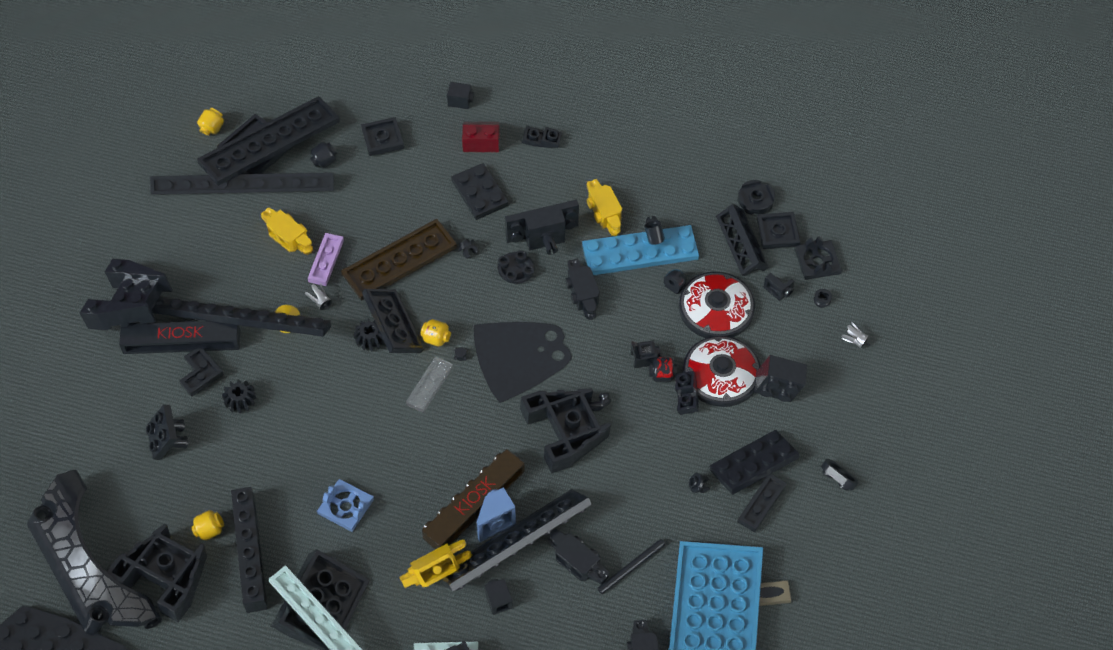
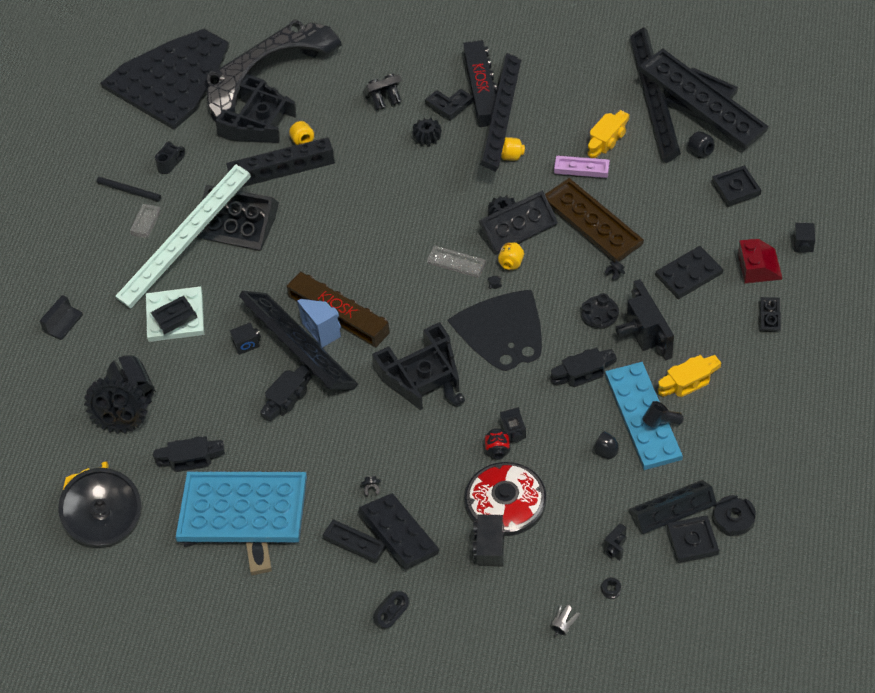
camera: 90 degrees right, 5 degrees down
(132, 302) = (508, 40): black wedge -> none
(210, 121) = (720, 58): yellow head -> none
(323, 300) = (537, 169): flat silver piece -> none
(328, 498) = (325, 231): medium blue piece -> none
(435, 565) = (269, 287): yellow hinge -> none
(631, 566) = (282, 439): black piece -> none
(687, 392) = (480, 464): black slope -> none
(716, 305) = (585, 489): dish -> none
(820, 271) = (655, 599): black piece -> none

